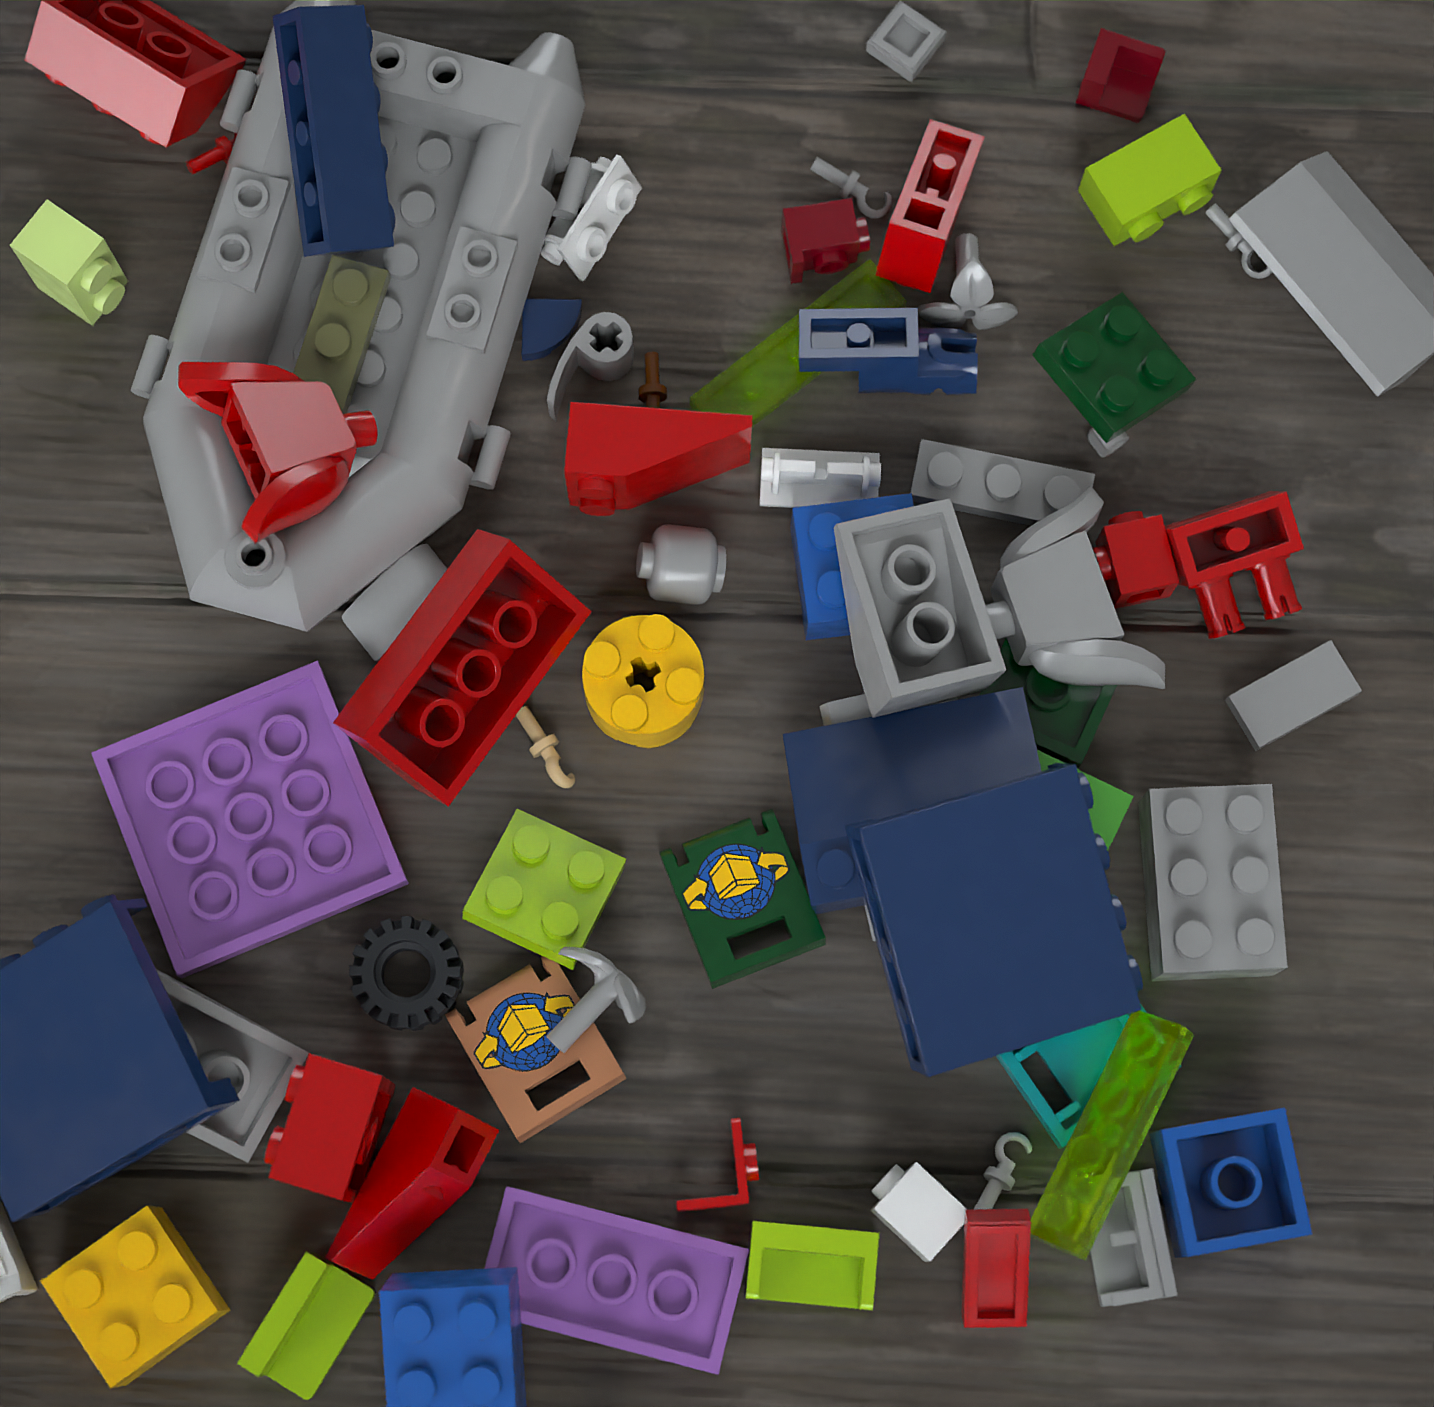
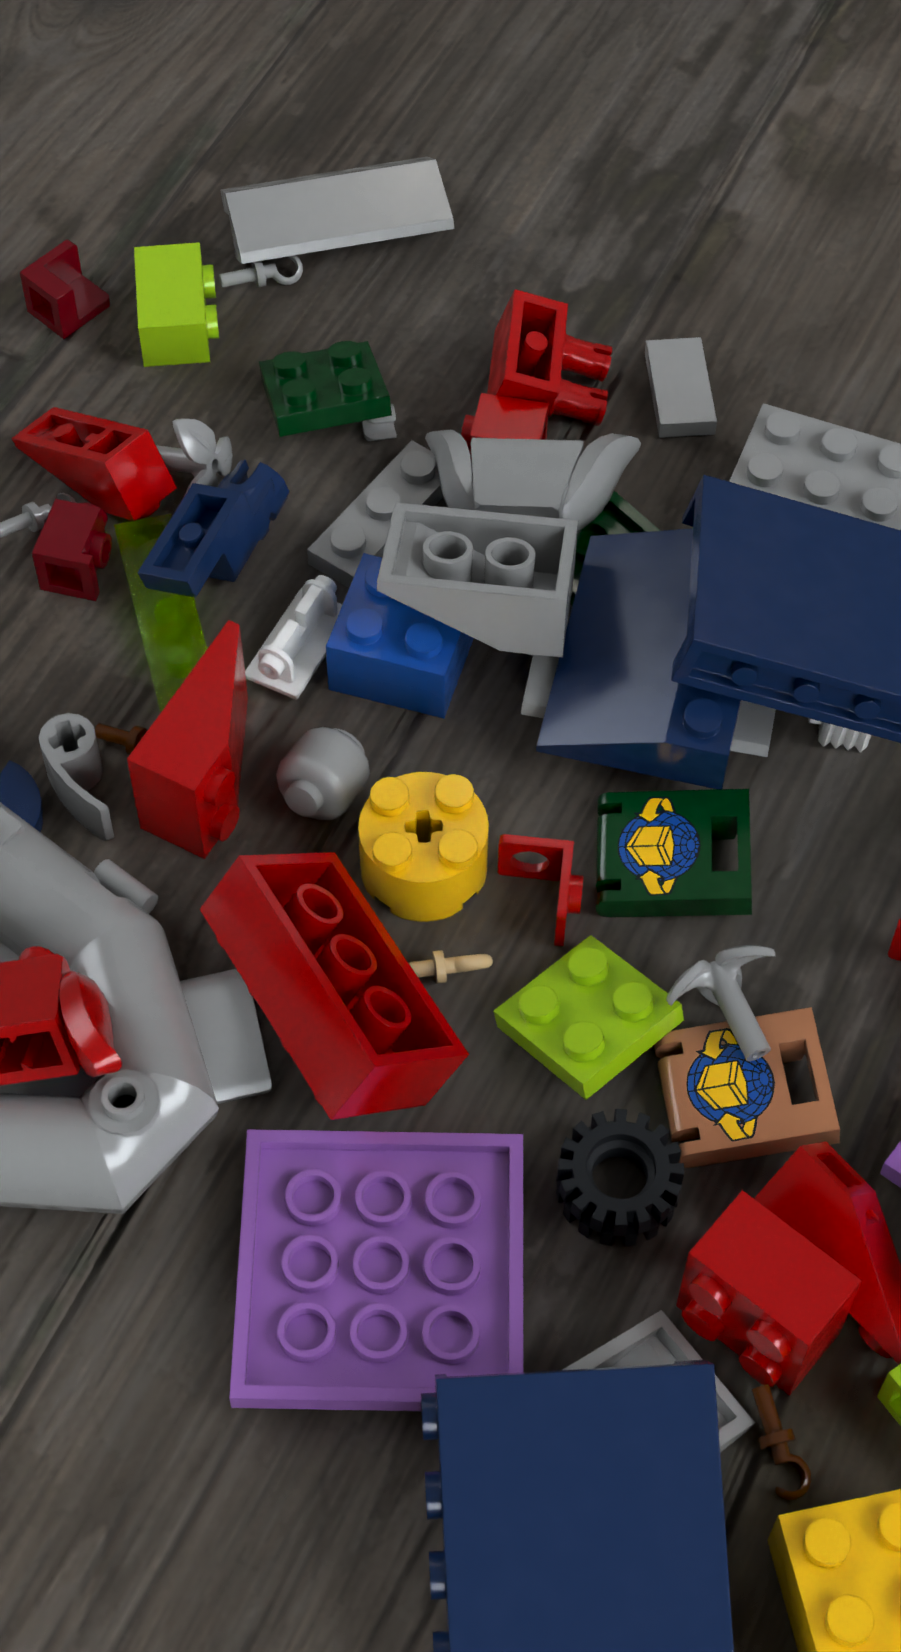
camera: 65 degrees left, 20 degrees down
(238, 1185) = (778, 1440): none -> reddish brown hand
(660, 821) = (556, 868): none -> red bracket

